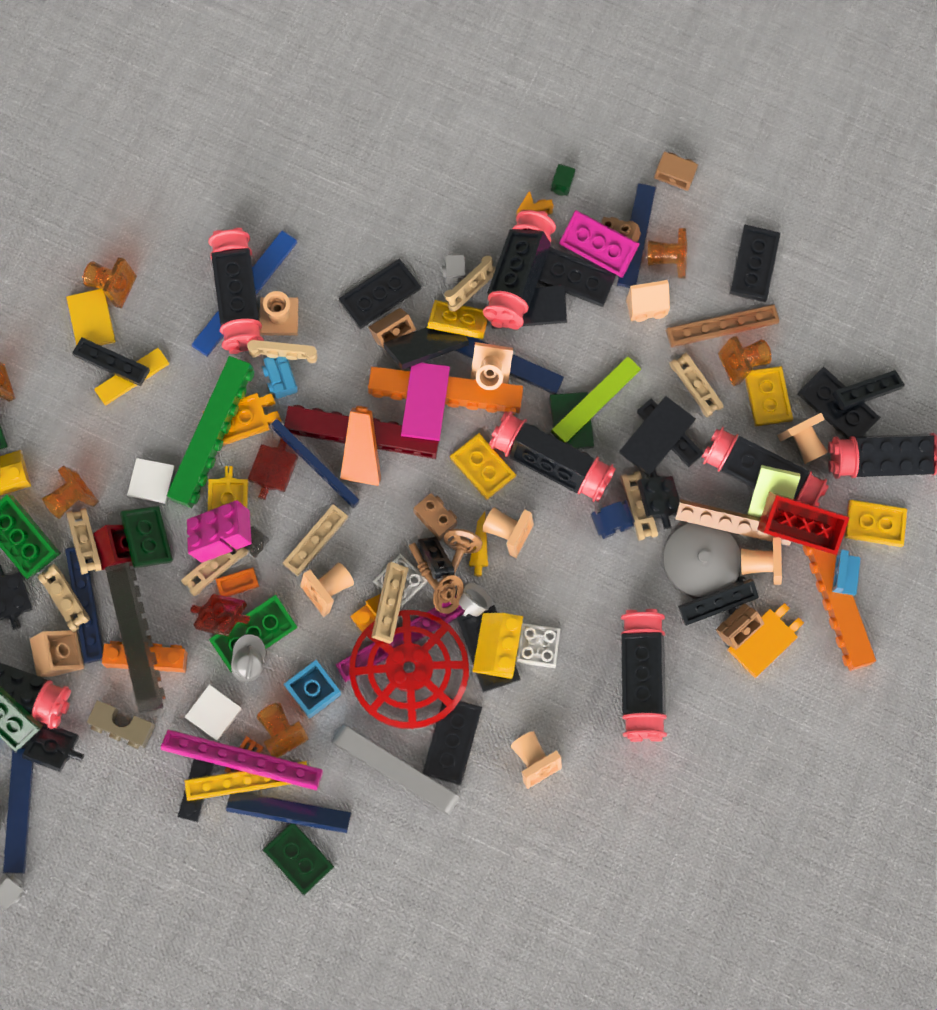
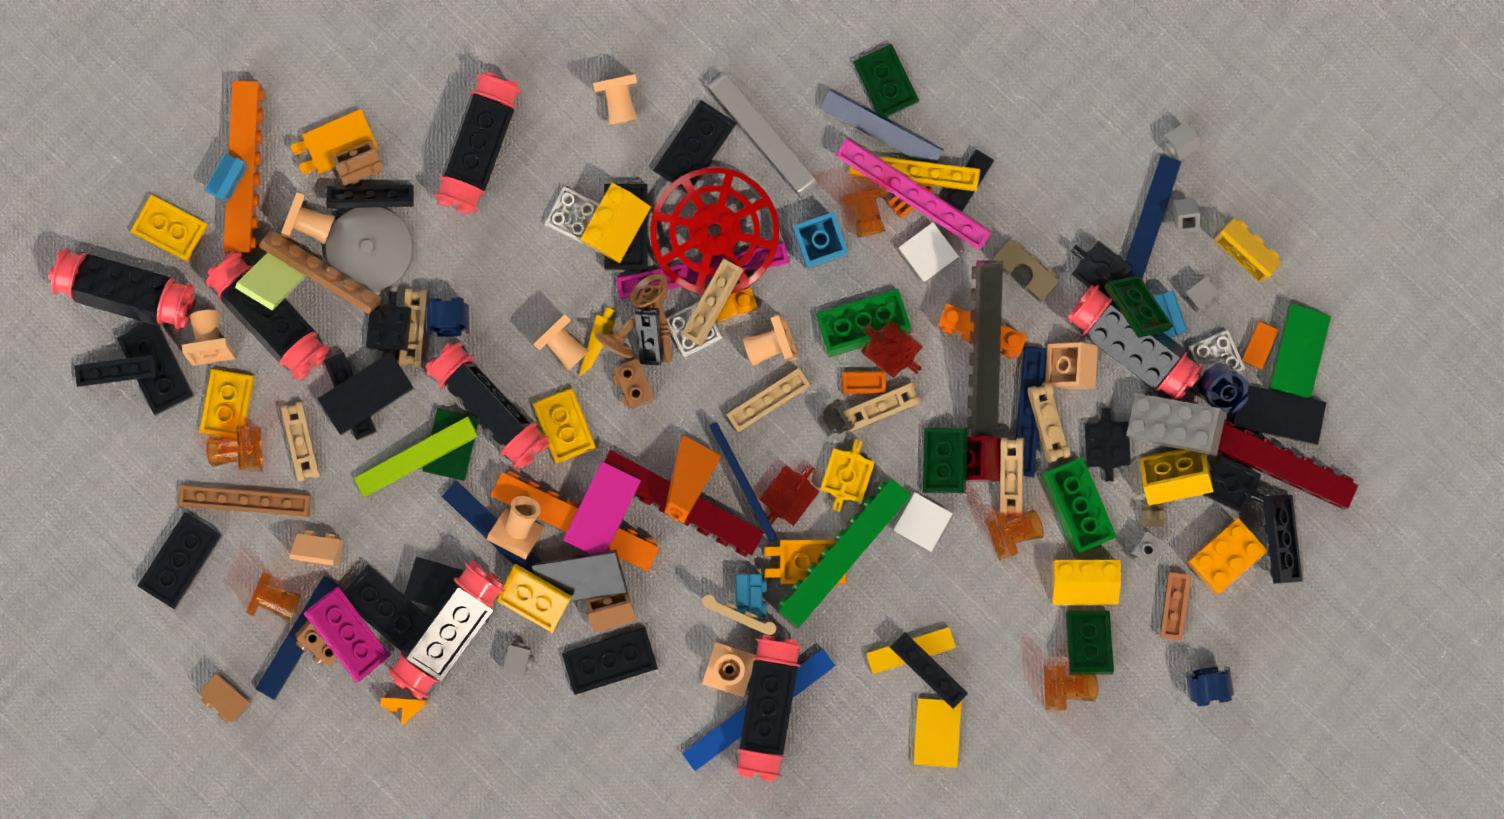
camera: 155 degrees left, 10 degrees up
(114, 282) = (906, 769): clear orange plant -> none
(208, 529) = (867, 438): dark pink piece -> none
(248, 658) = (876, 296): light grey piece -> none
(470, 284) = (500, 636): tan plate -> none
(474, 600) = (622, 278): light grey piece -> none
(563, 180) = (358, 729): dark green brick -> none
(803, 523) = (252, 237): red brick -> none

